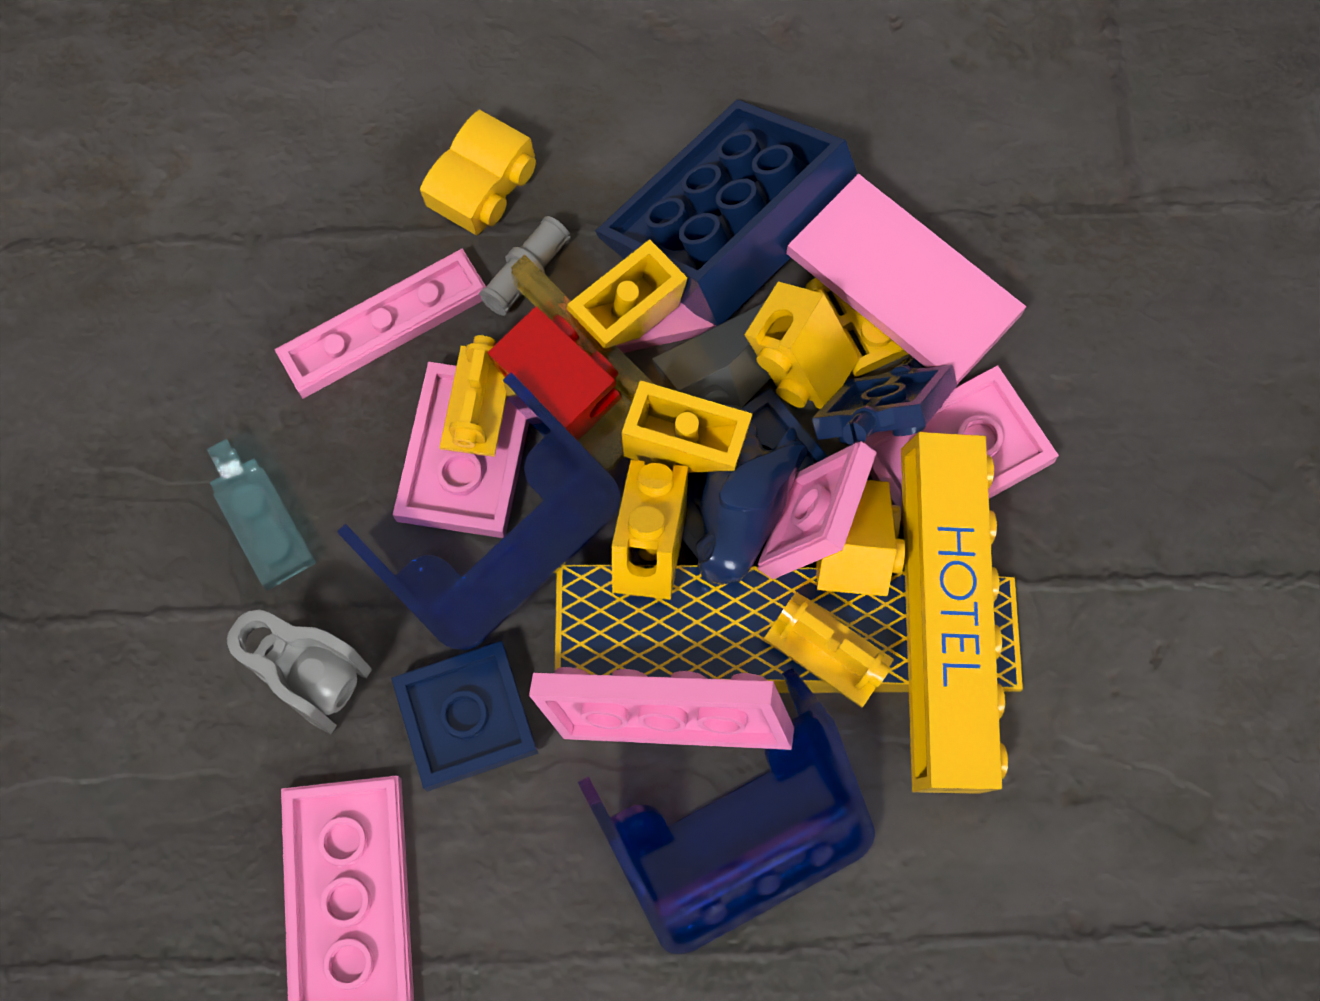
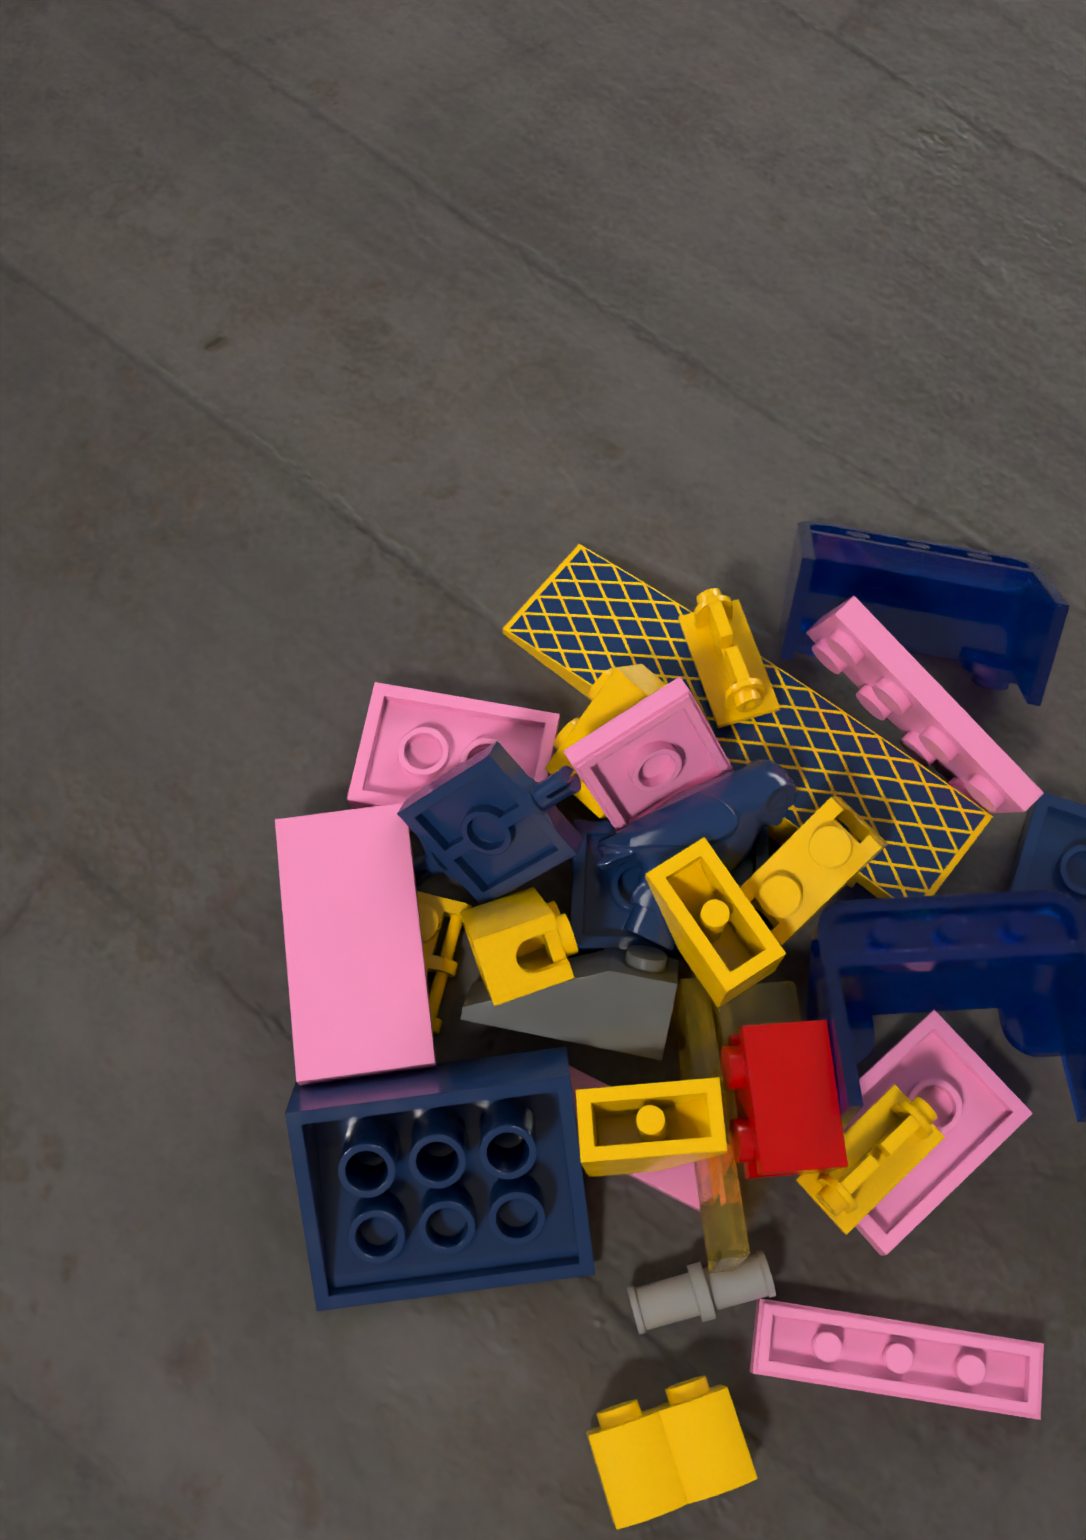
camera: 145 degrees left, 0 degrees up
(951, 615) = (596, 615): yellow brick -> none

